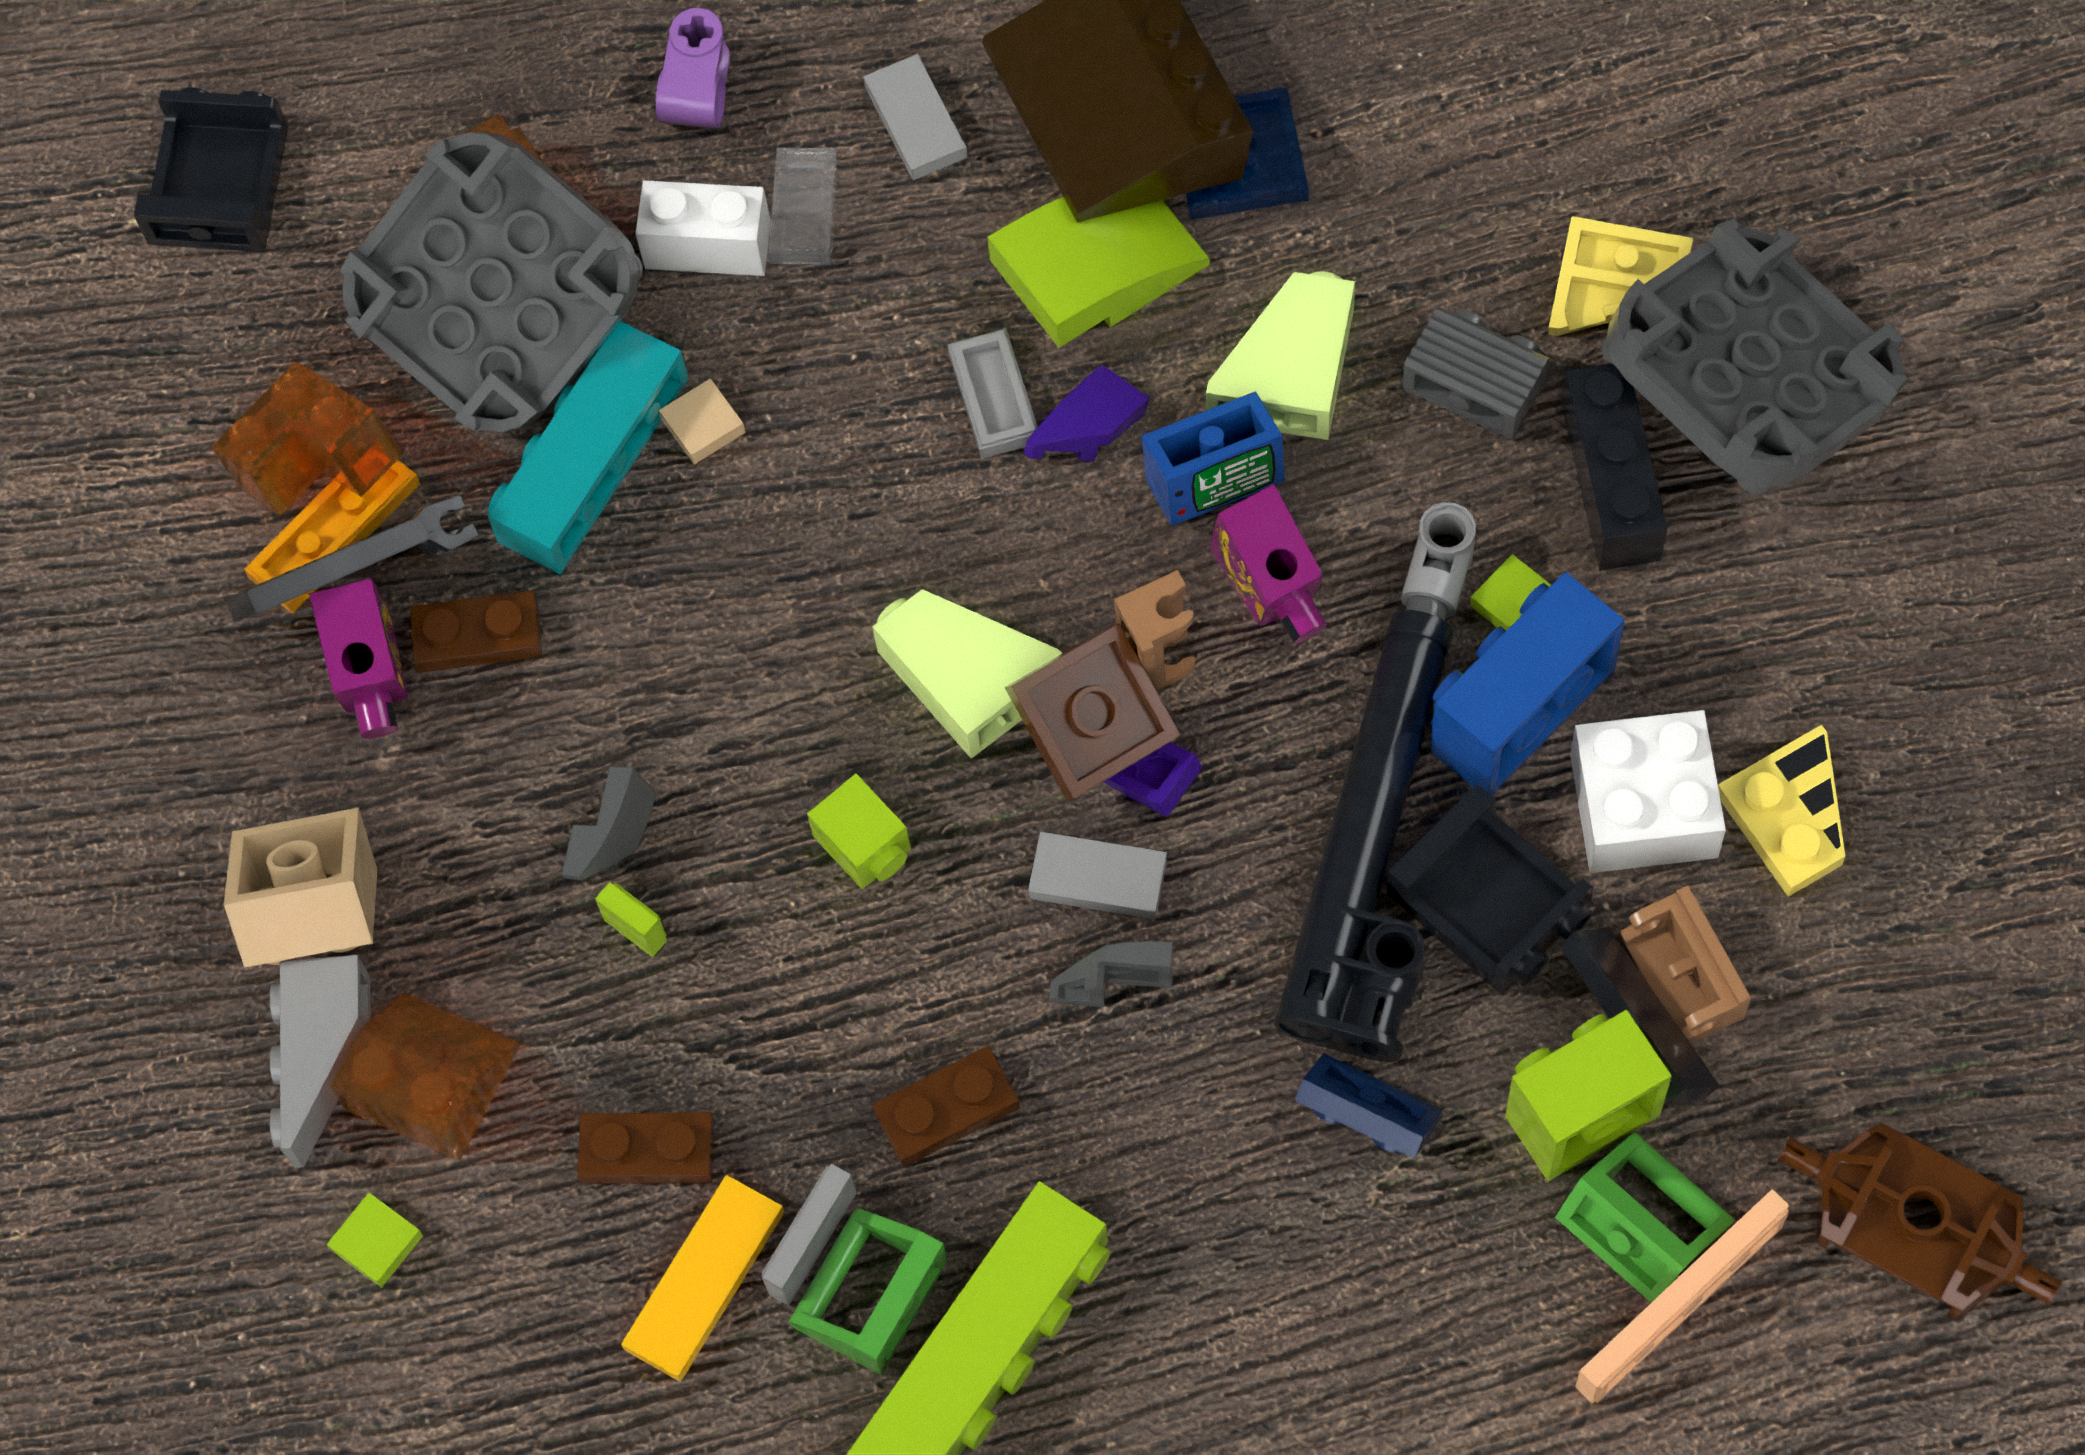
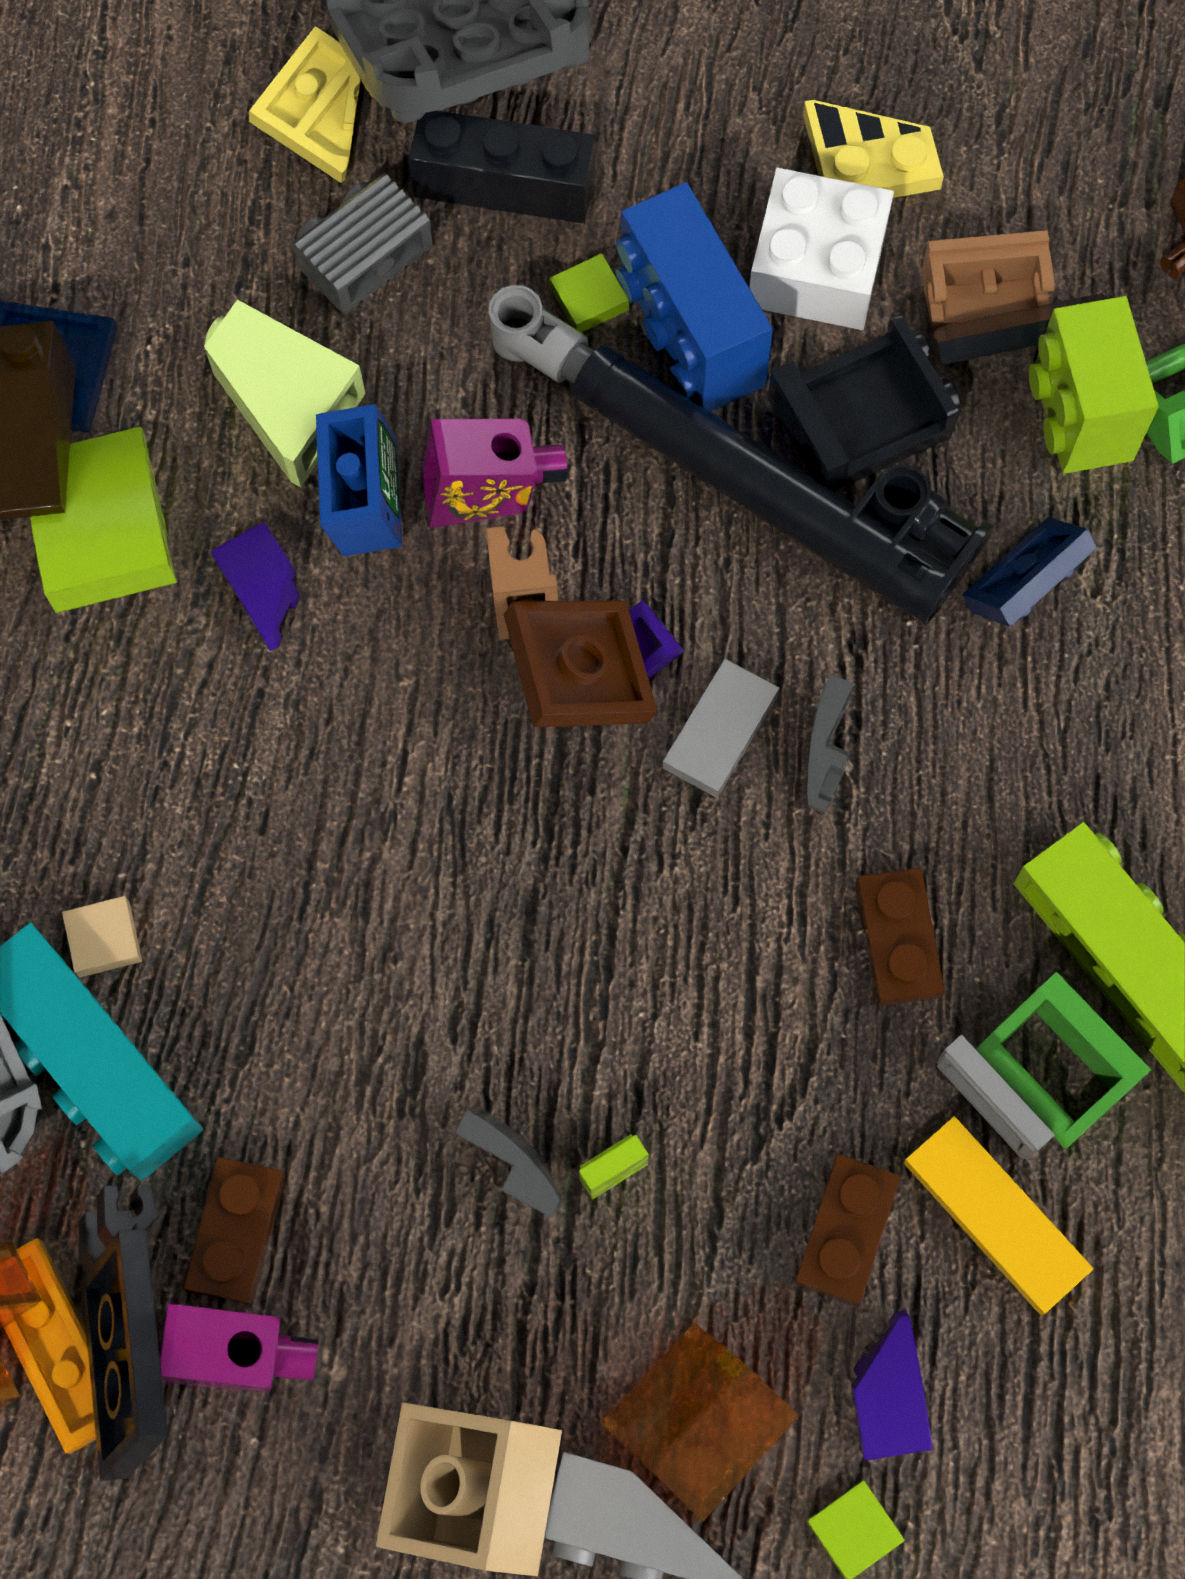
camera: 75 degrees left, 5 degrees up
(501, 1229) = (891, 1395): none -> dark purple slope
(860, 832) = (606, 921): lime brick -> none
(958, 664) = (472, 772): yellowish green slope -> none
(993, 392) = (193, 659): light grey tile -> none

